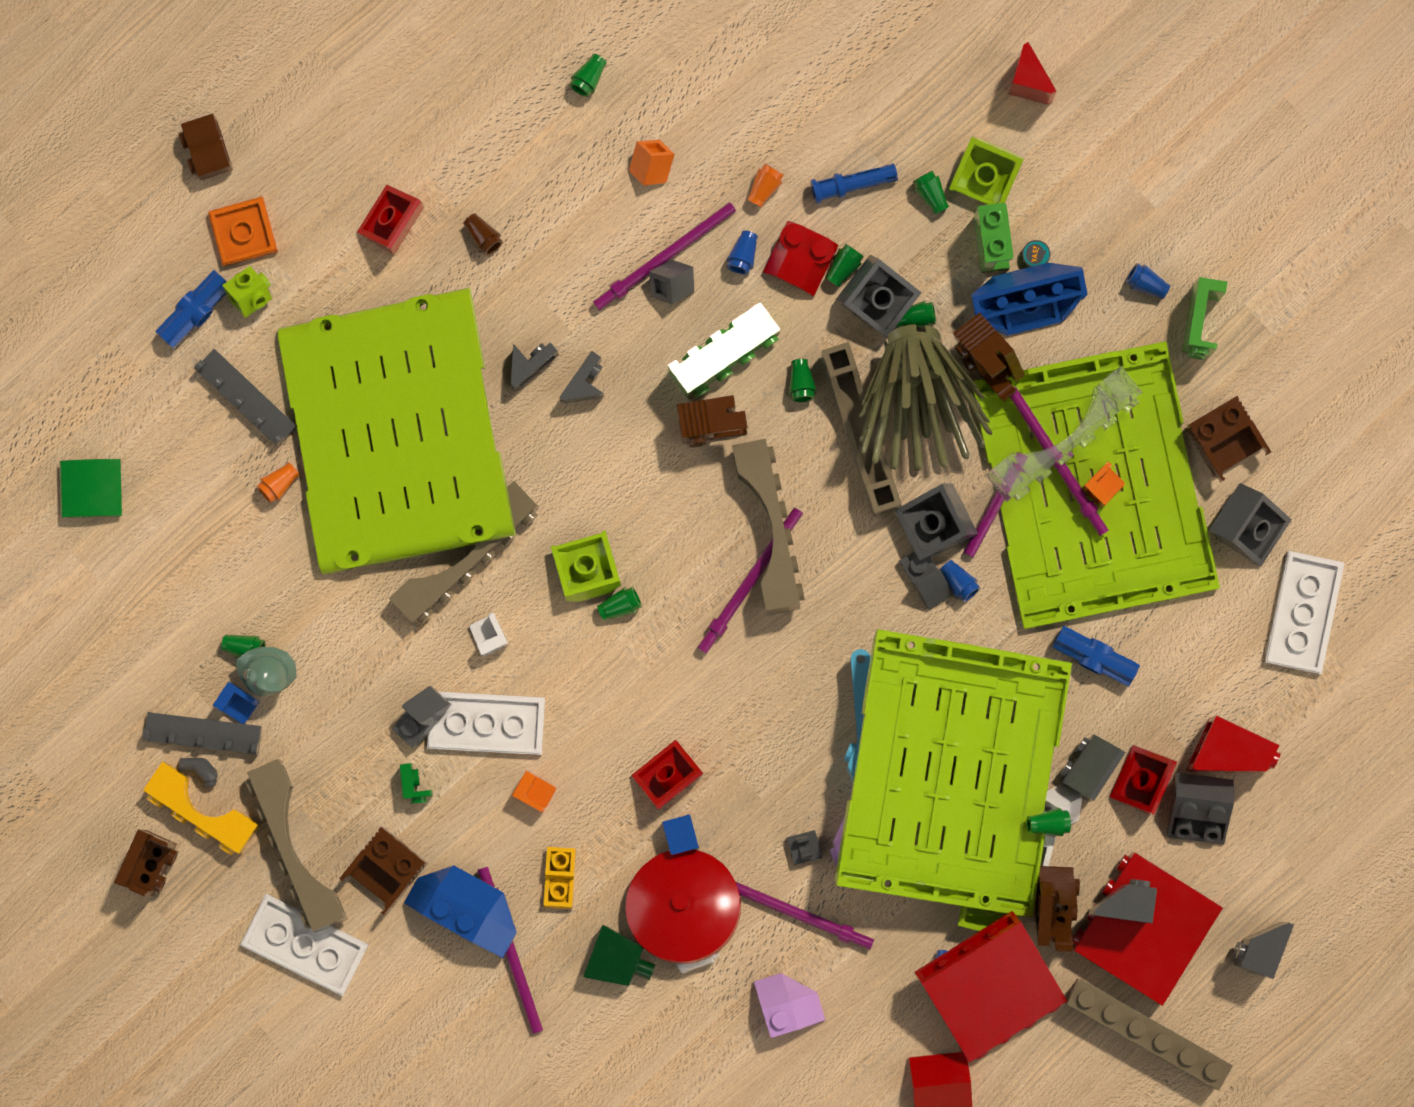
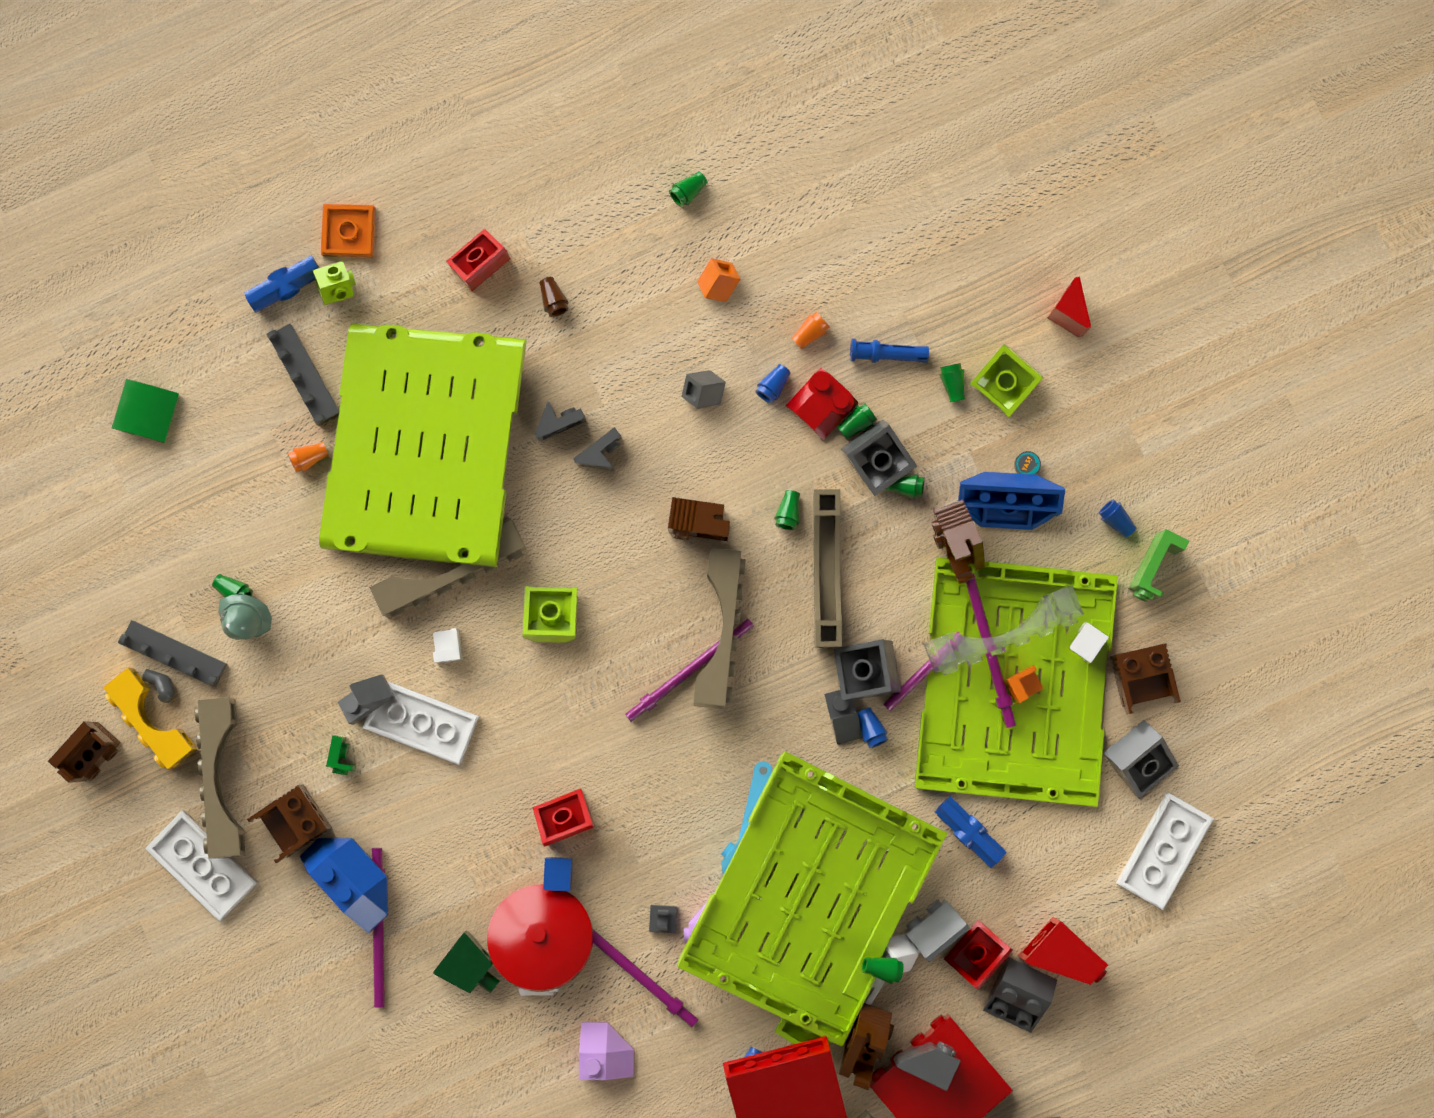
camera: 15 degrees right, 0 degrees up
(206, 147) = (339, 147): reddish brown brick -> none
(236, 703) = (209, 635): blue panel -> none
(534, 791) = (443, 795): orange panel -> none
(559, 878) = (441, 877): yellow slope -> none
(619, 288) = (656, 381): magenta bar -> none
(620, 604) = (570, 655): green cone -> none
(724, 351) = (730, 463): wedge -> none
(921, 371) = (895, 543): olive plant -> none
(993, 237) = (995, 437): bright green panel -> none
(1156, 420) = (1088, 642): none -> white panel

